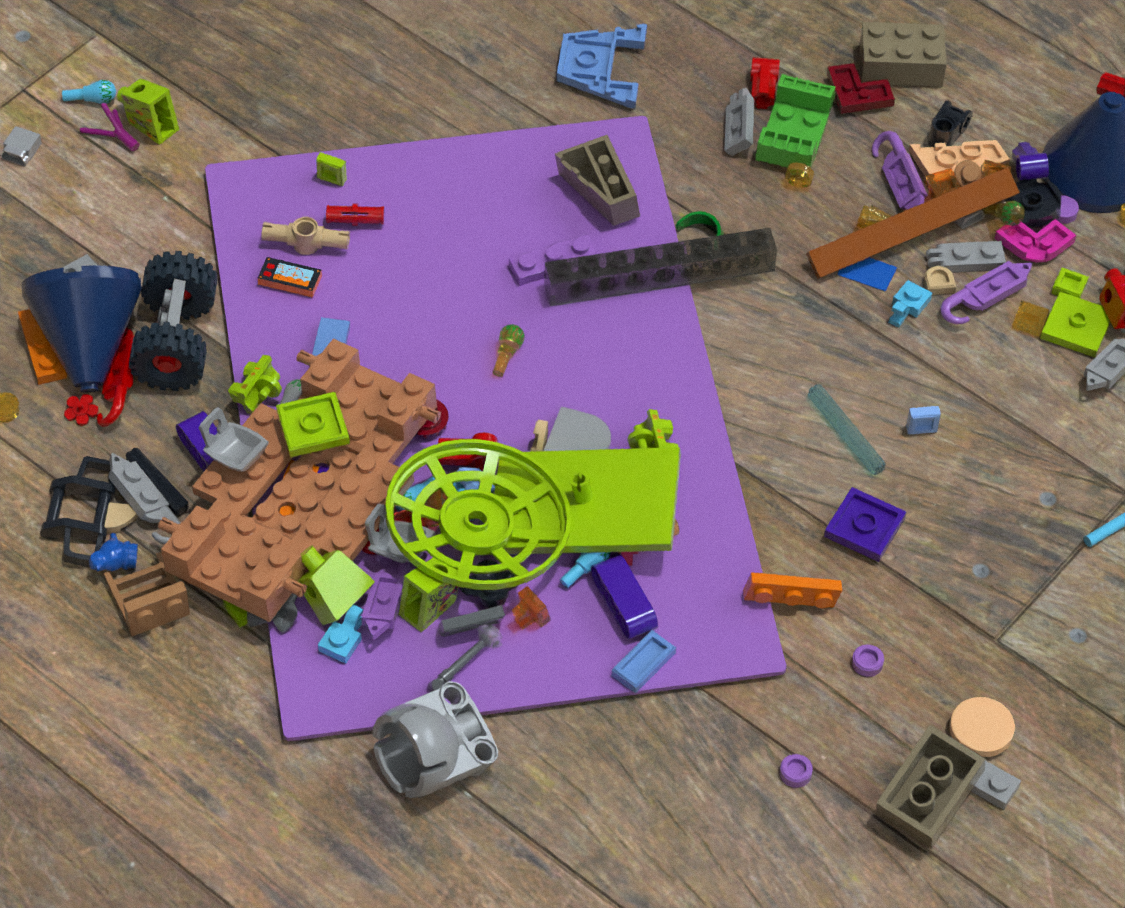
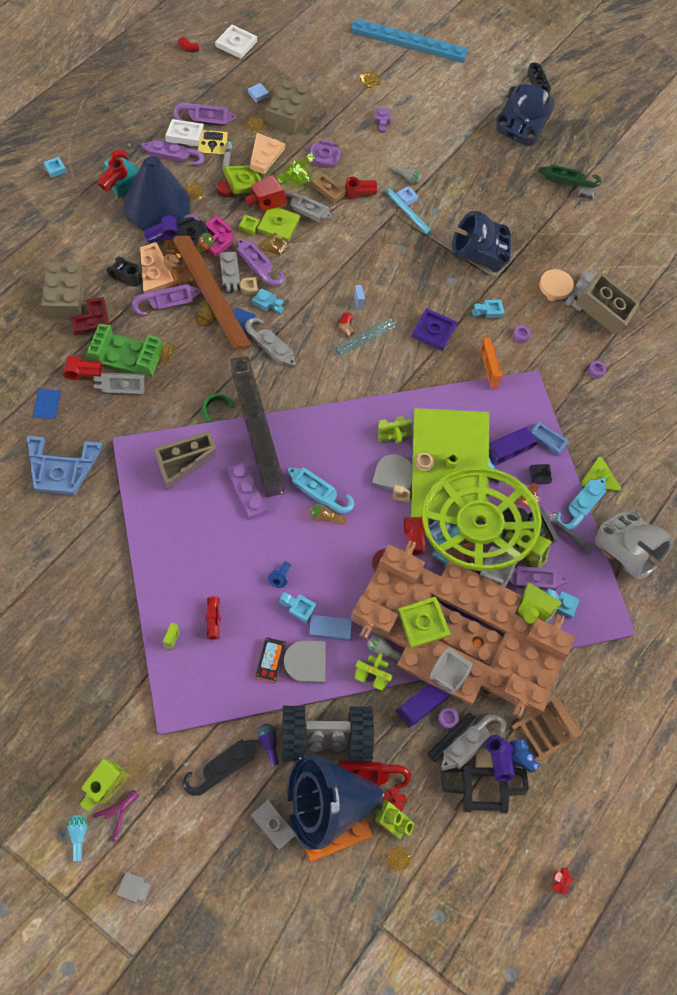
camera: 100 degrees left, 10 degrees up
(51, 392) = (394, 820): none -> lime hips
(121, 522) = (501, 757): none -> dark purple piece
(152, 226) = (223, 766): none -> black plate
(183, 479) = (448, 718): none -> medium lavender tile
(282, 315) = (306, 661): none -> light grey tile
(305, 235) = (236, 659): tan pin -> none
(363, 308) = (299, 607): none -> medium azure plate
(409, 288) = (278, 578): none -> blue plate
(518, 696) = (584, 502): none -> medium azure plate
(550, 339) = (318, 489): none -> medium azure plate
(574, 638) = (540, 474): none -> black tile
(575, 742) = (601, 470): none -> lime piece
(583, 456) = (424, 461): none -> tan plate
(708, 50) = (46, 403): none -> blue sticker
(825, 305) = (271, 344): none -> light grey plate
(869, 401) = (345, 324): none -> arm
(916, 614) = (490, 308): none -> medium azure plate
(1057, 601) = (484, 242): none -> dark blue piece

